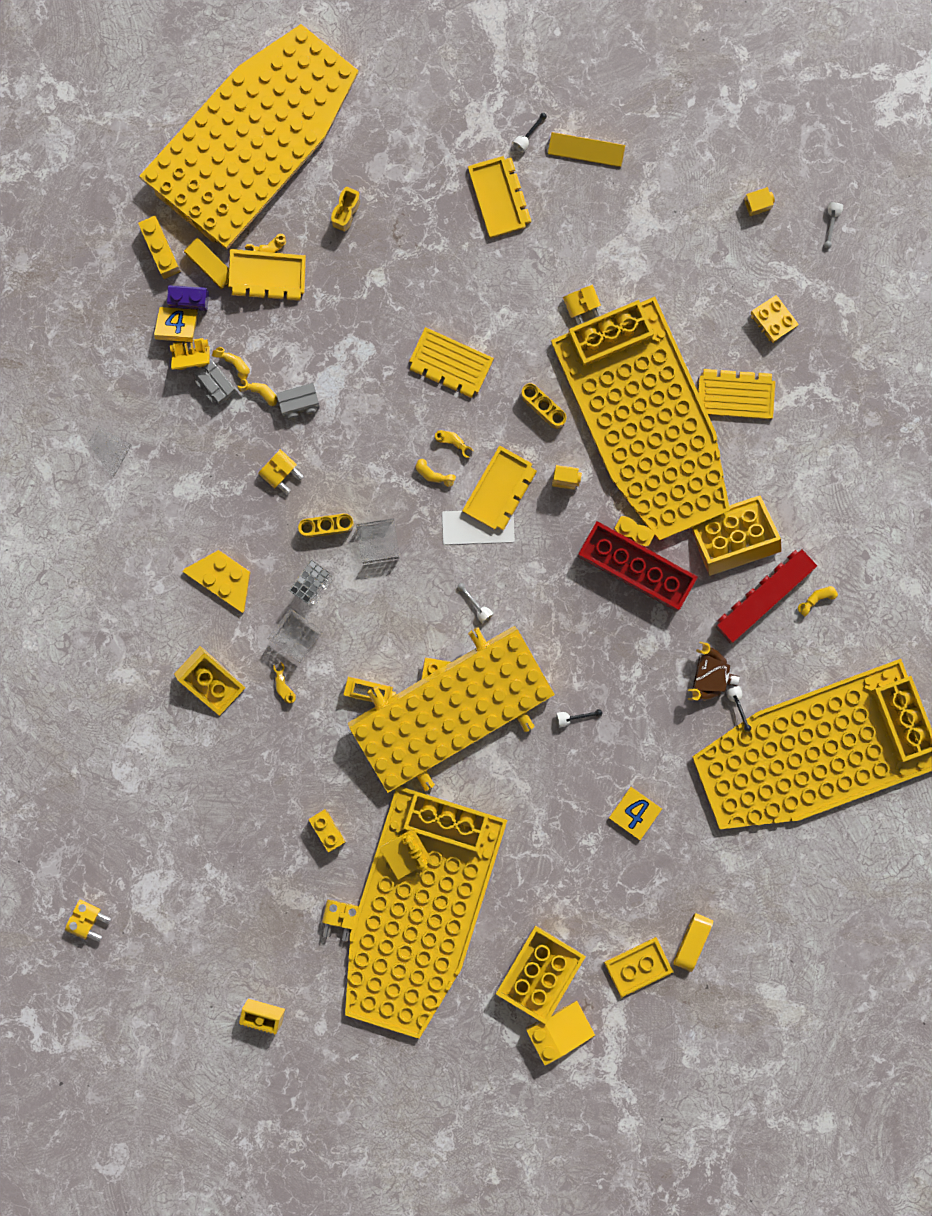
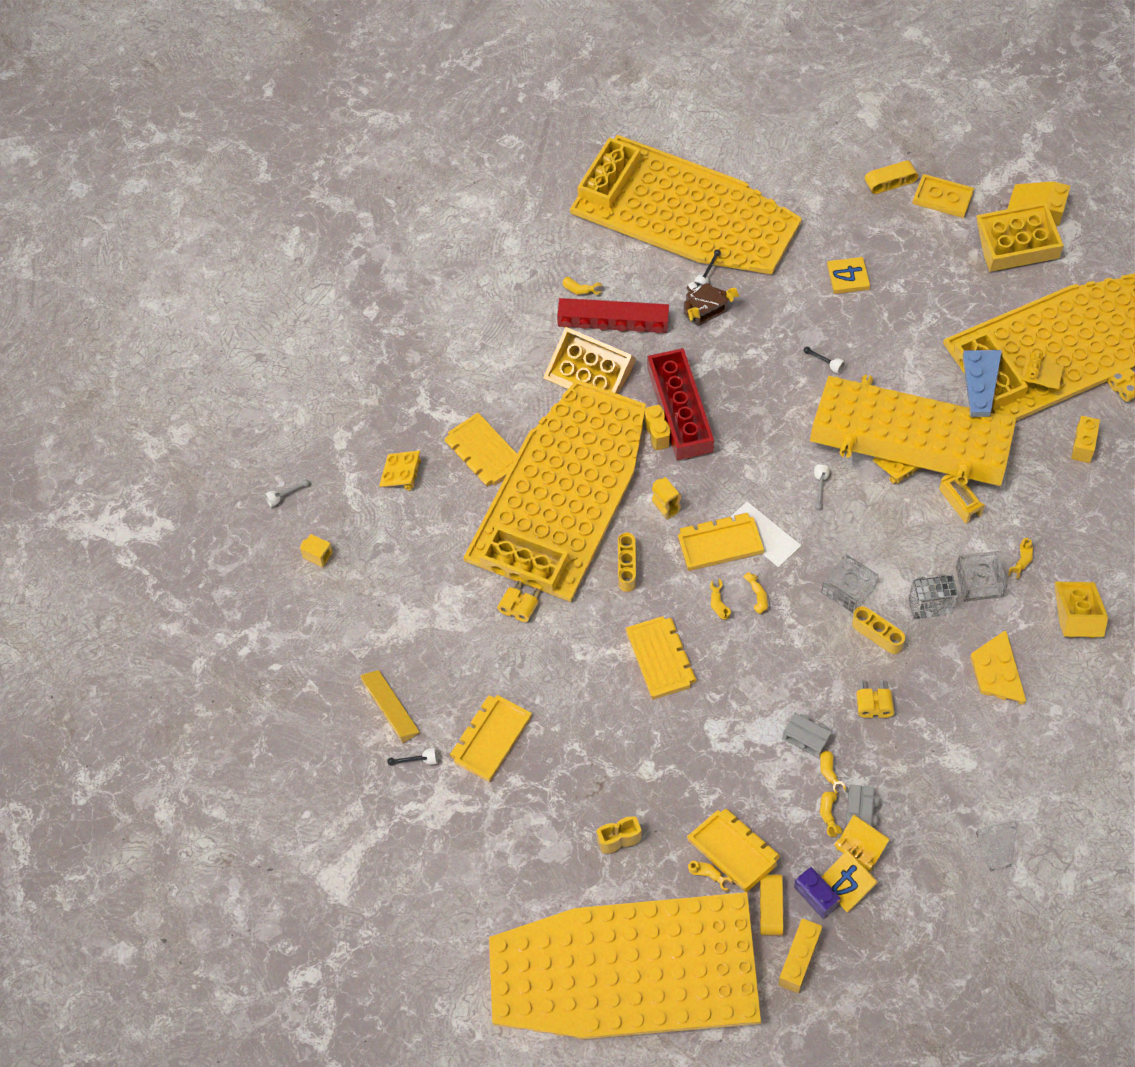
camera: 125 degrees left, 25 degrees down
(444, 802) = (981, 377): none -> medium blue wing

